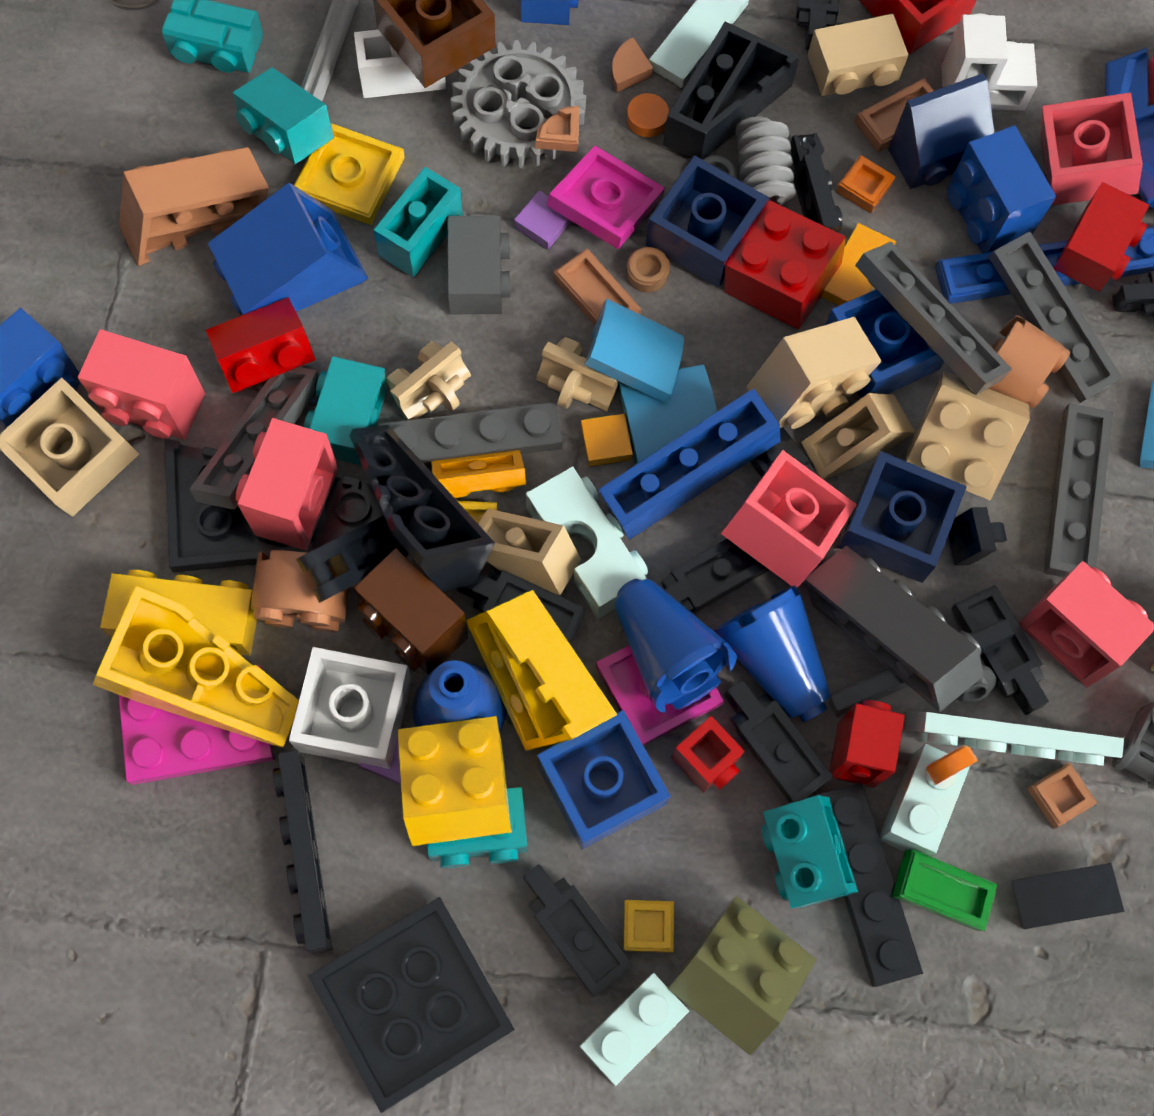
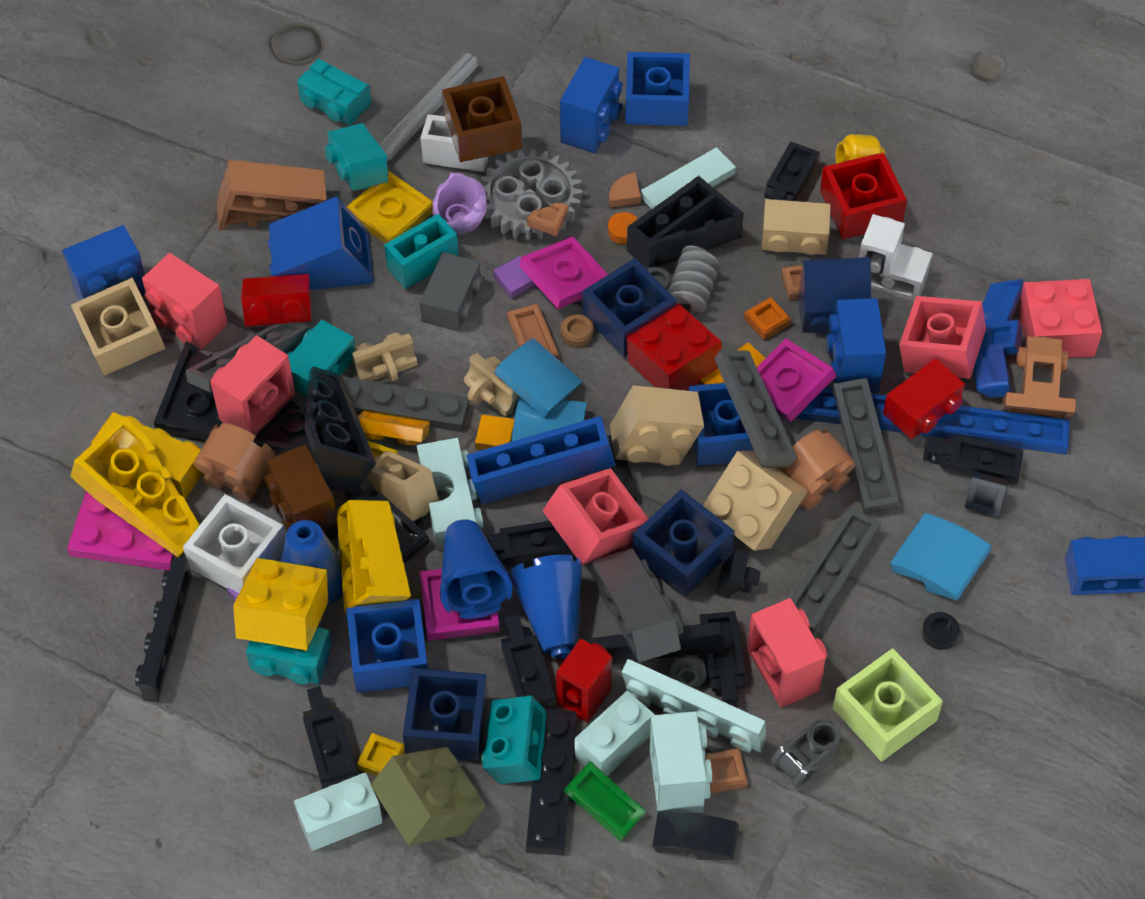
camera: 25 degrees right, 15 degrees down
(351, 557) = (272, 440): black plate -> none
(410, 1004) = (195, 748): black plate -> none
(441, 140) = (460, 203): none -> lavender hair
(708, 756) = (469, 650): red brick -> none
(713, 848) = (446, 712): none -> dark blue brick
(814, 182) = (725, 305): black hinge -> none
(858, 434) = (685, 471): tan slope -> none
(942, 251) = (793, 378): none -> dark pink plate
(951, 764) = (631, 700): orange tile -> none
(1024, 818) = (679, 762): none -> light aqua brick

